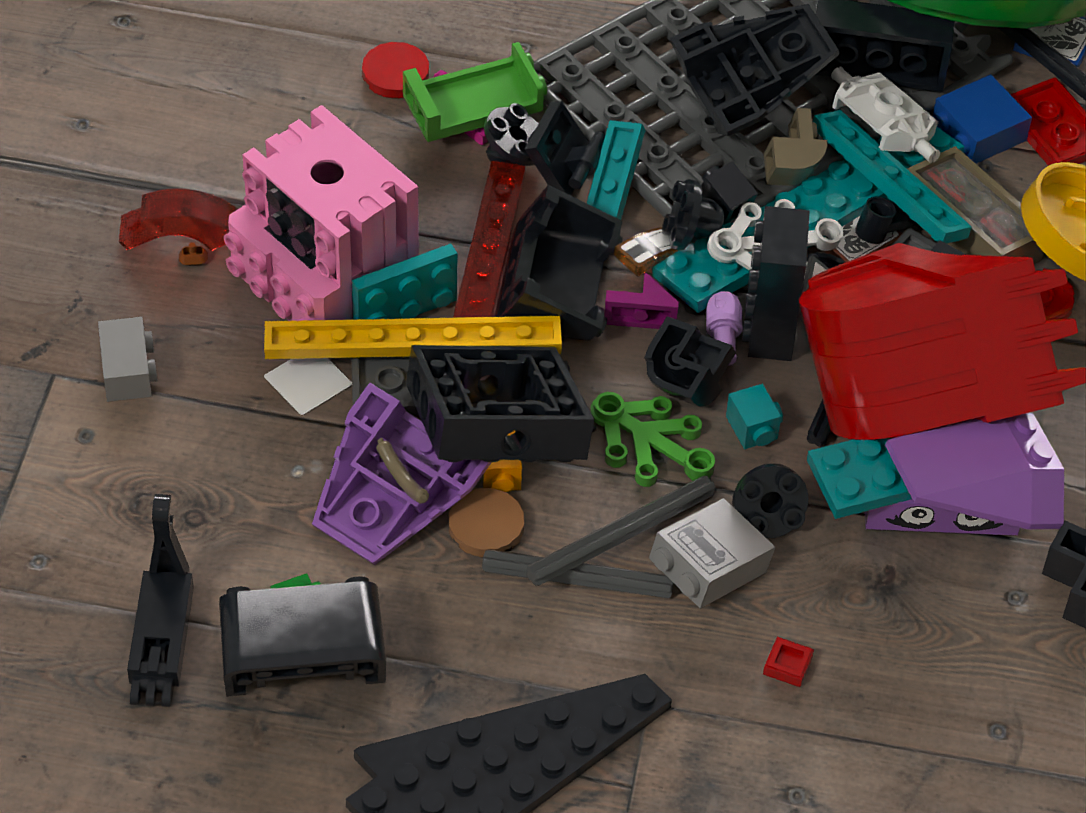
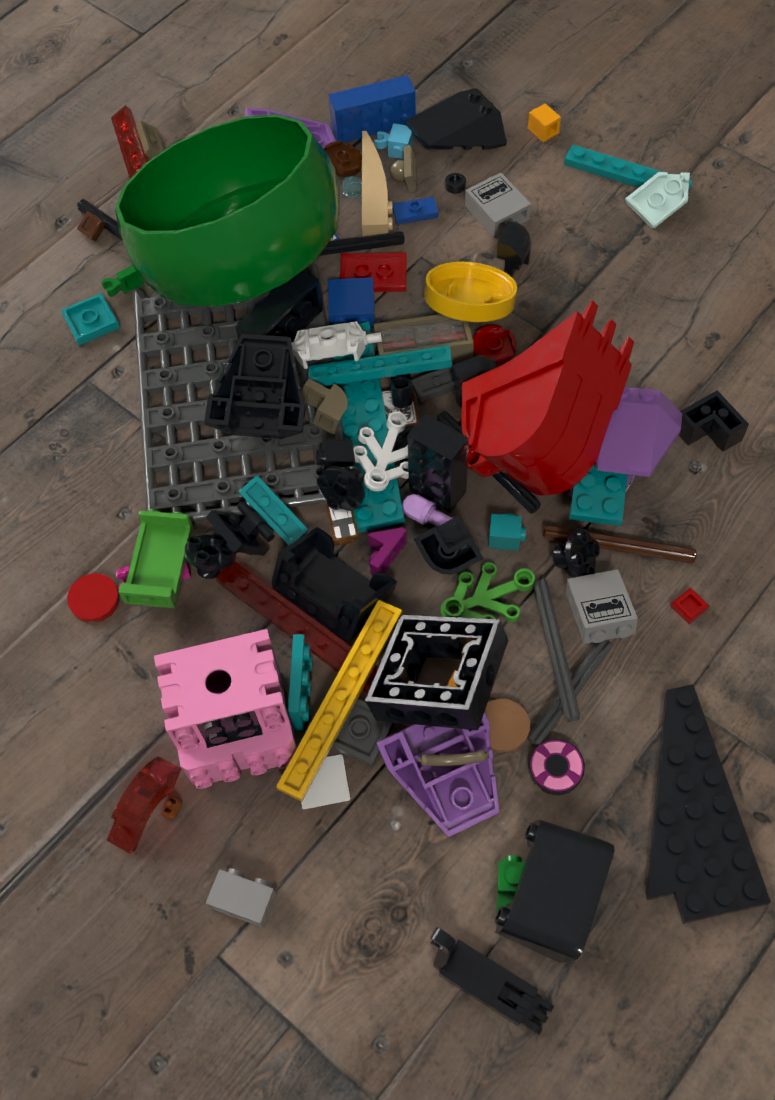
camera: 55 degrees left, 10 degrees up
(466, 597) = (556, 766): none -> tile
(834, 564) = (627, 545): none -> reddish brown axle

